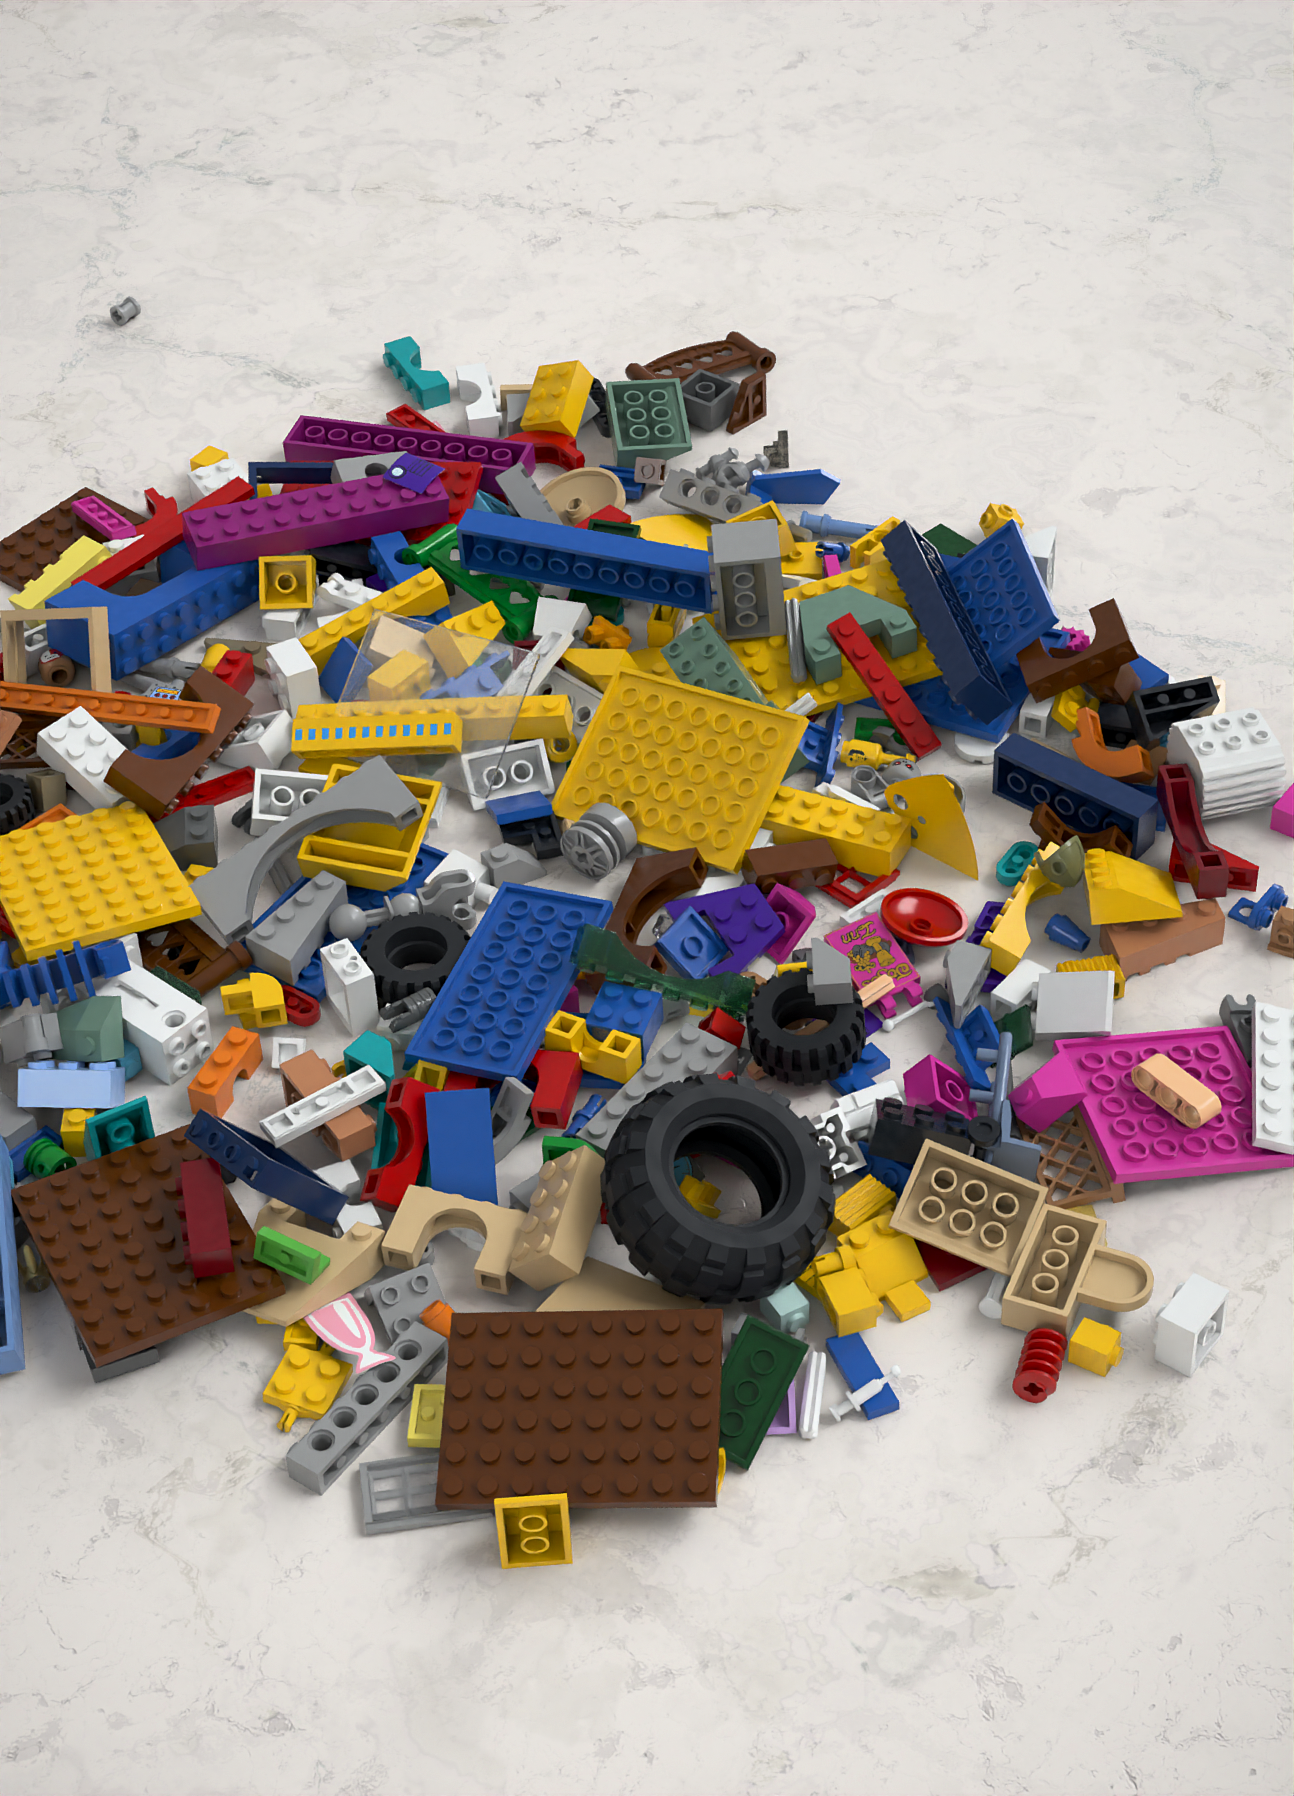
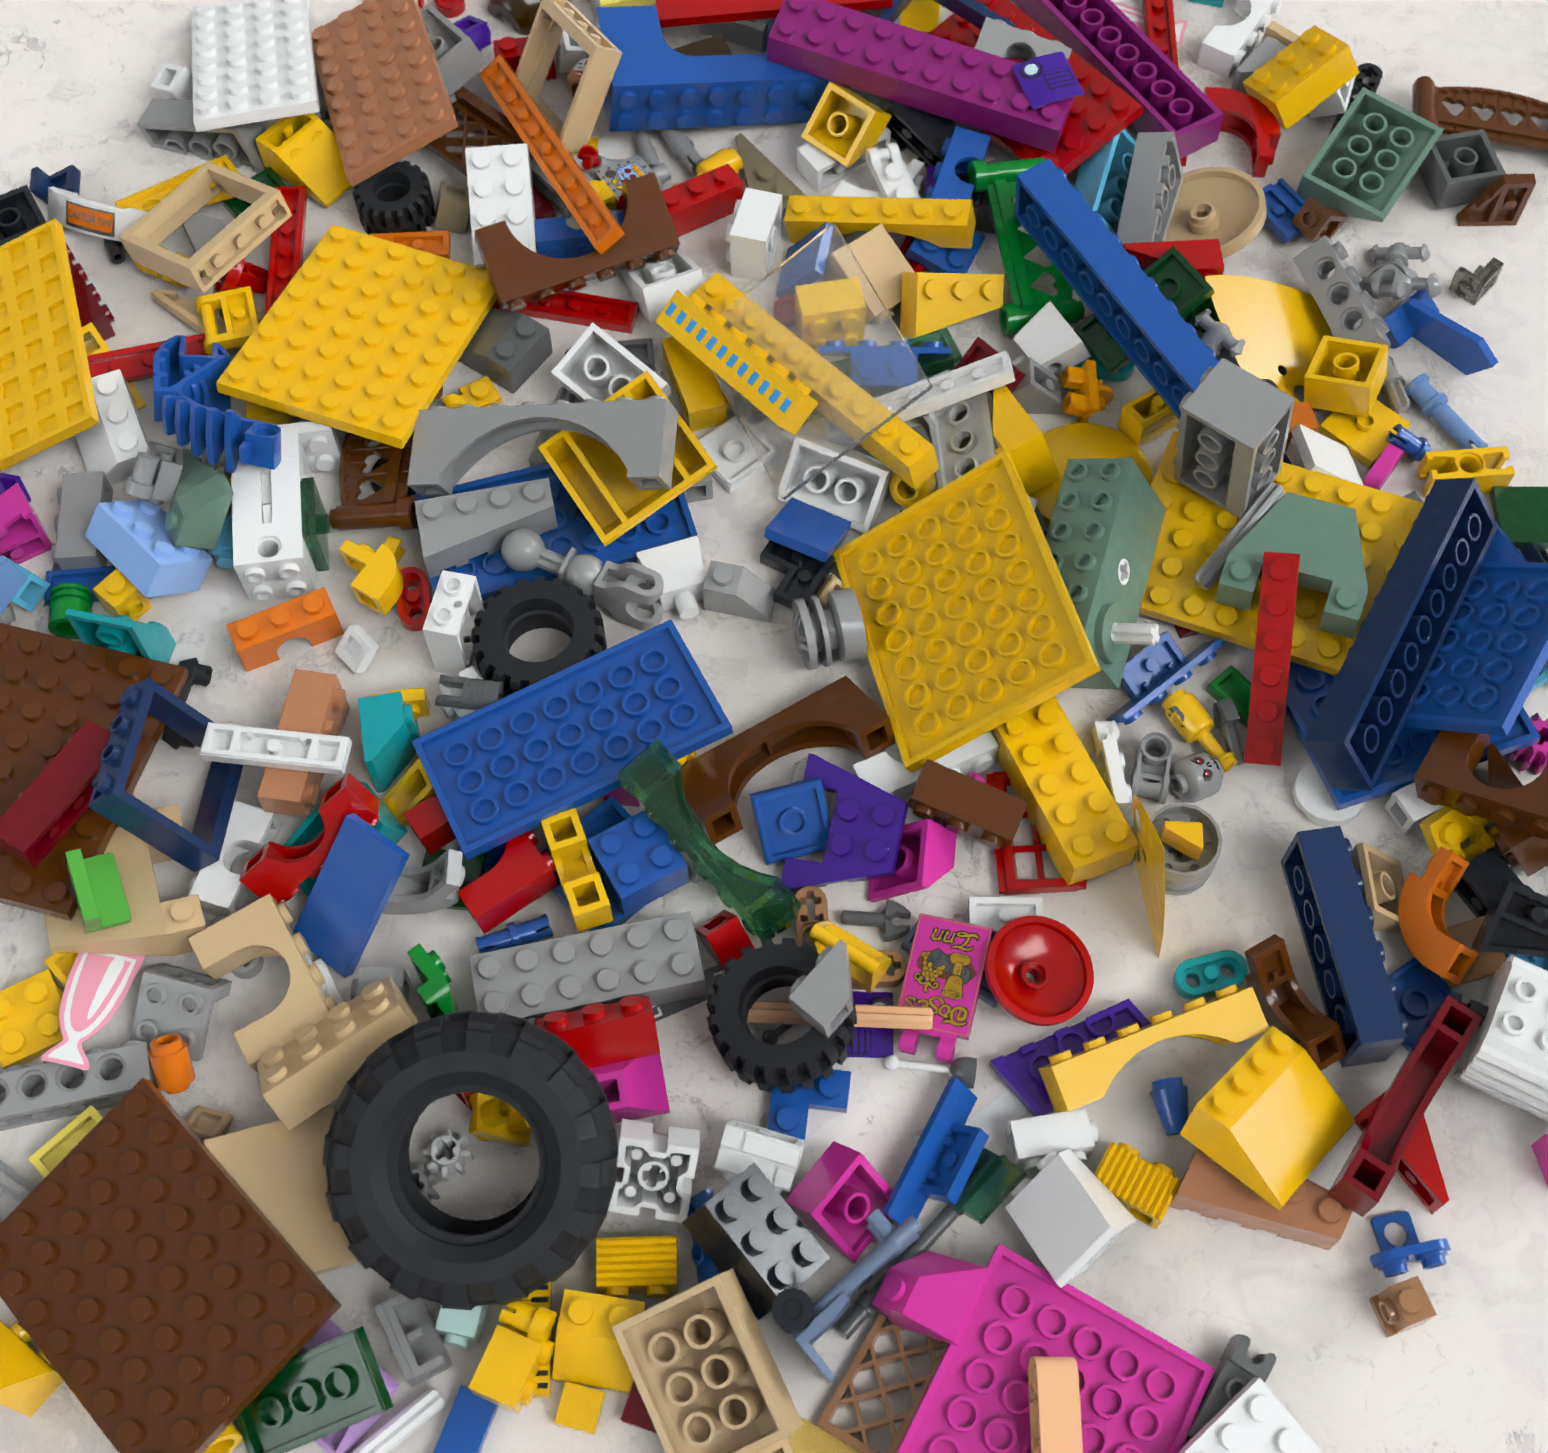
camera: 40 degrees right, 20 degrees up
(965, 975) = (1005, 1077): light grey slope -> none
(1065, 864) = (1224, 1036): olive helmet -> none

